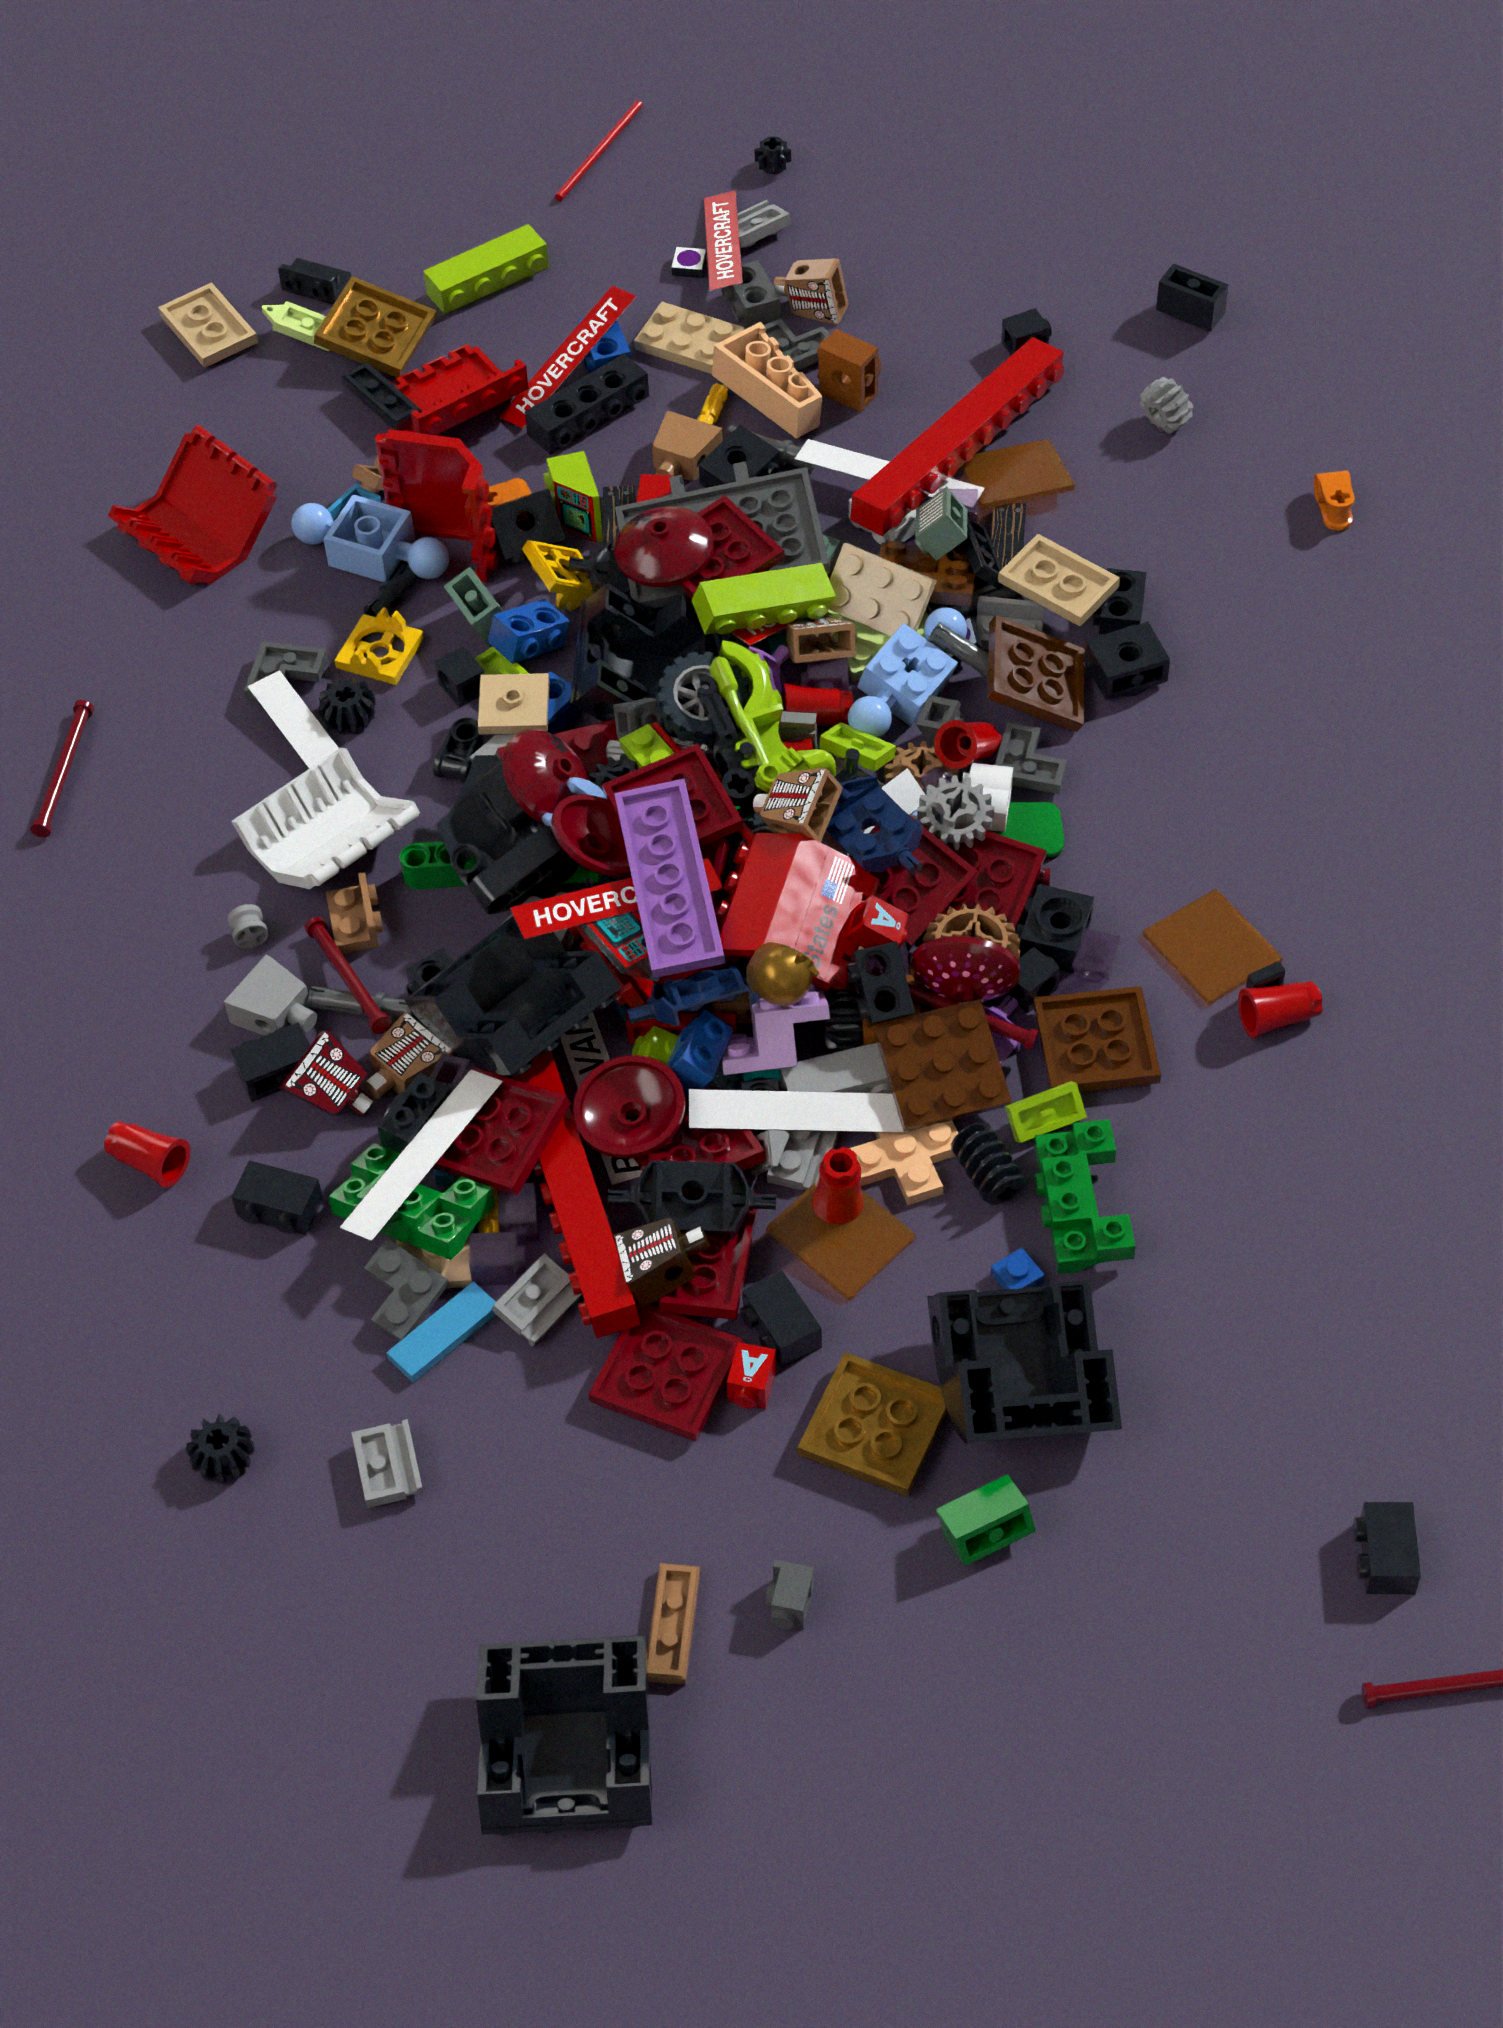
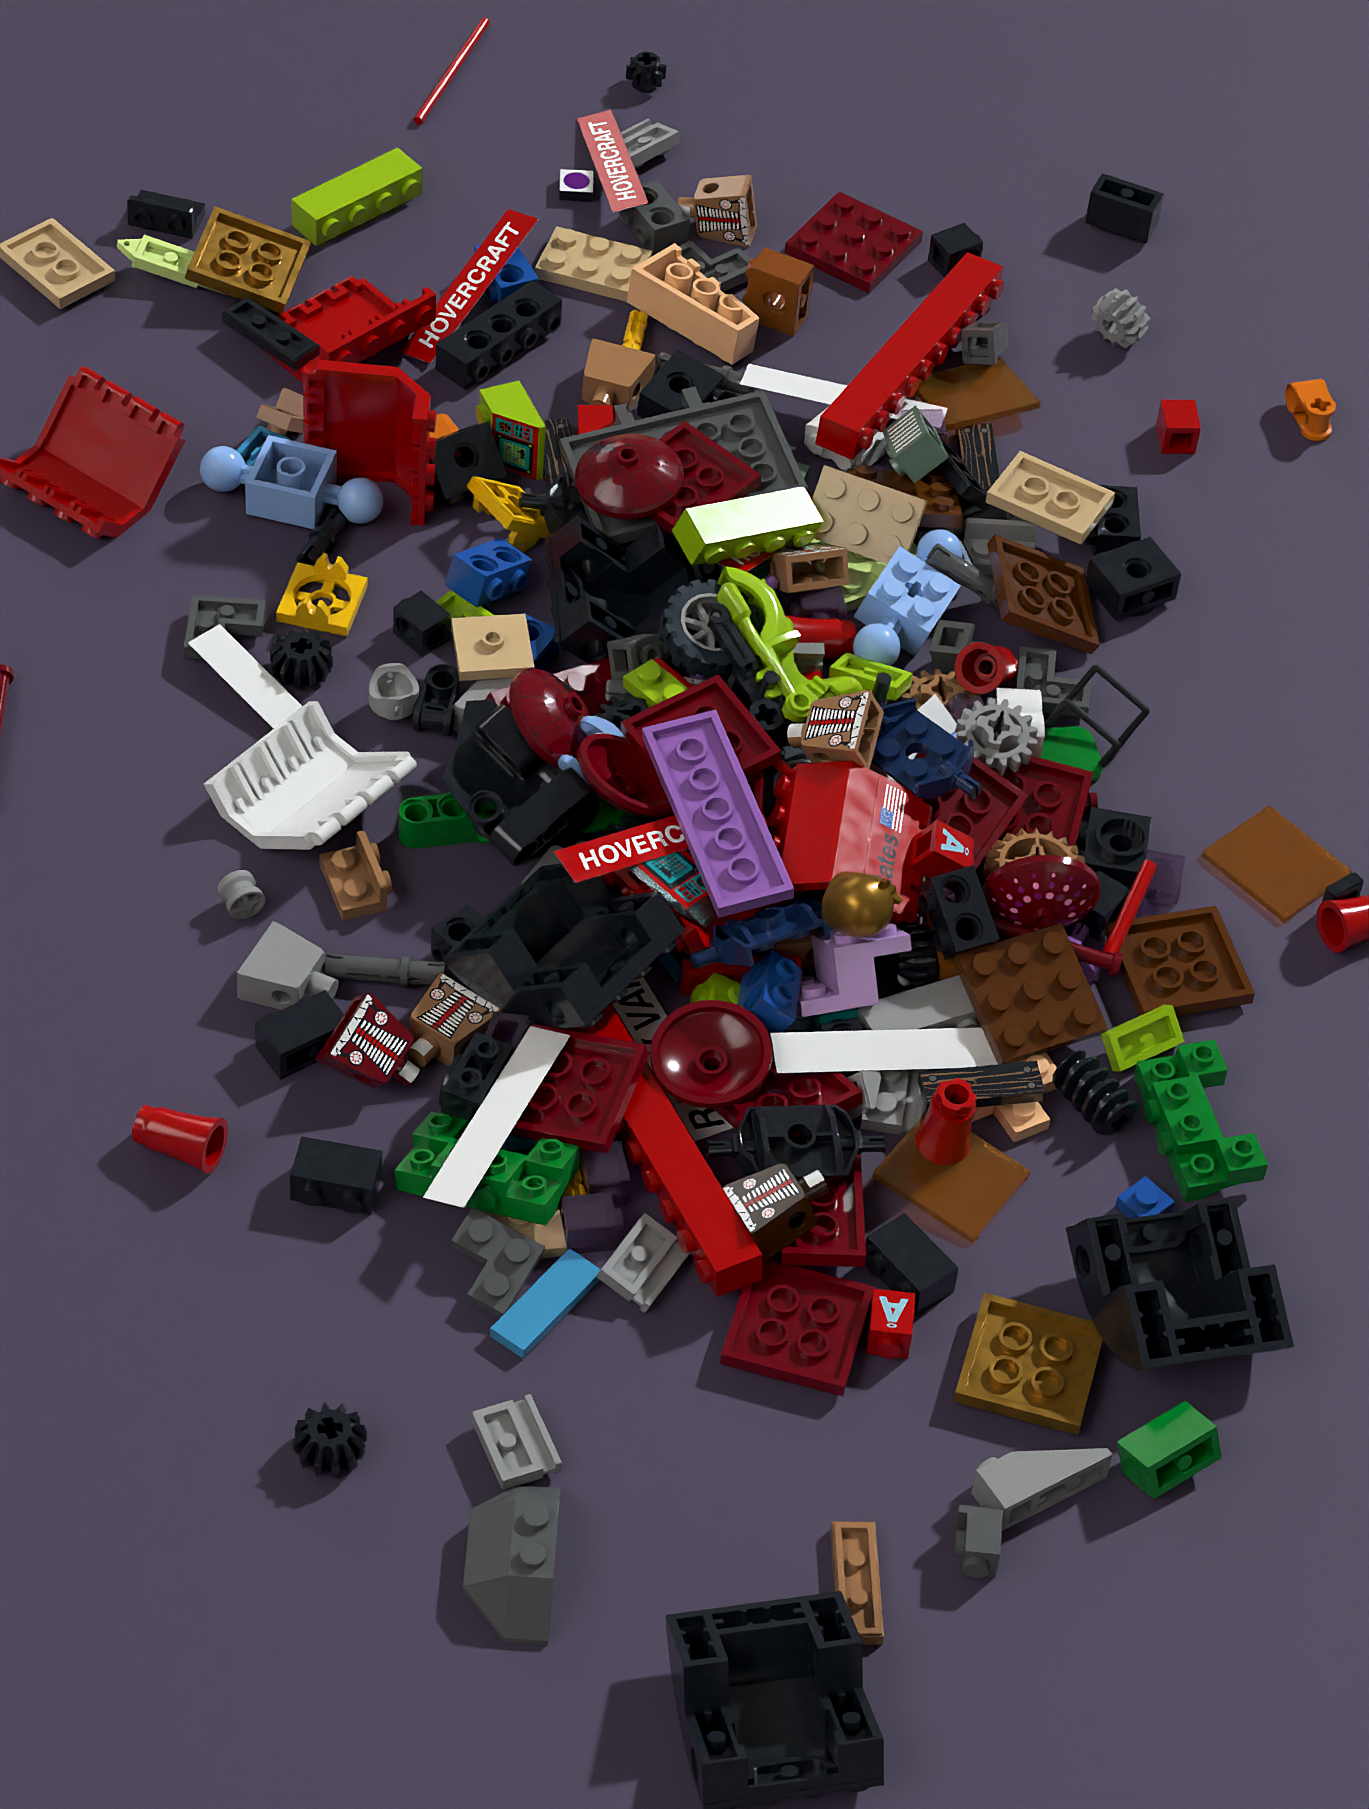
camera: 15 degrees left, 5 degrees down
(363, 1576) = (514, 1562): none -> dark grey wedge
(379, 1021) = (415, 983): dark red bar -> none
(420, 746) = (395, 697): none -> light grey piece
(474, 601) = (424, 546): sand green brick -> none
(854, 1539) = (1035, 1480): none -> light grey slope
(889, 1149) = (990, 1083): none -> black tile
(934, 323) = (854, 242): none -> dark red plate
(1033, 424) = (984, 342): none -> dark grey brick
(1055, 985) = (1130, 907): none -> red bar
(1074, 827) = (1068, 702): none -> black piece
(1202, 512) = (1178, 426): none -> red brick

